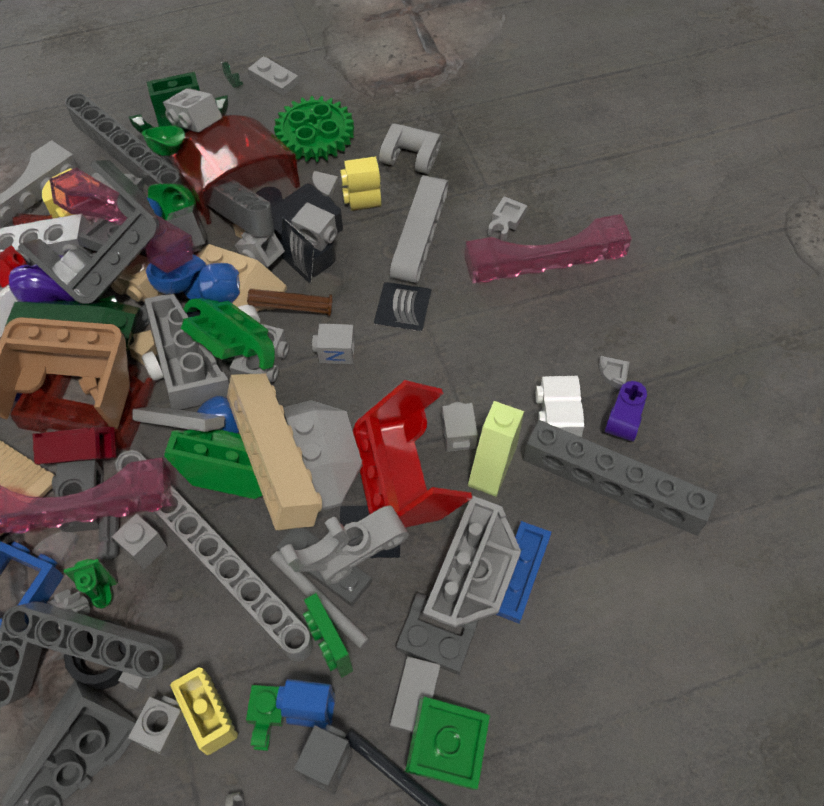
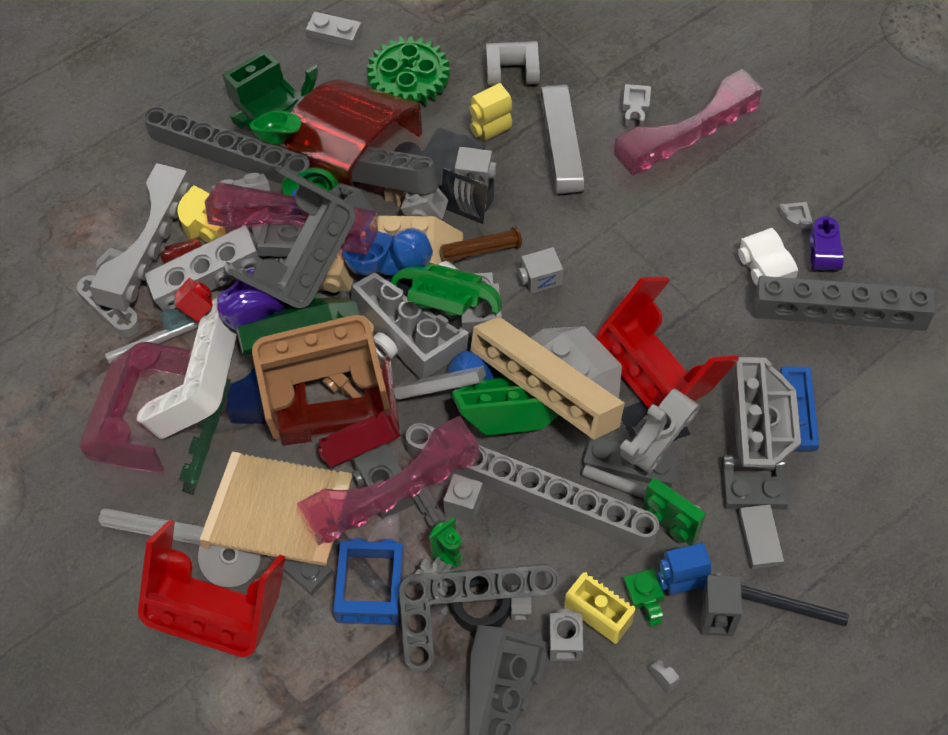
camera: 20 degrees left, 0 degrees up
(192, 110) = (288, 89): light grey brick -> none
(233, 79) = (294, 44): clear green piece -> none
(325, 183) = (446, 121): light grey tile -> none
(402, 306) = (580, 217): black sticker -> none
(448, 743) = (807, 559): green plate -> none
(459, 426) = (689, 306): light grey brick -> none
(495, 448) = (734, 312): yellowish green slope -> none

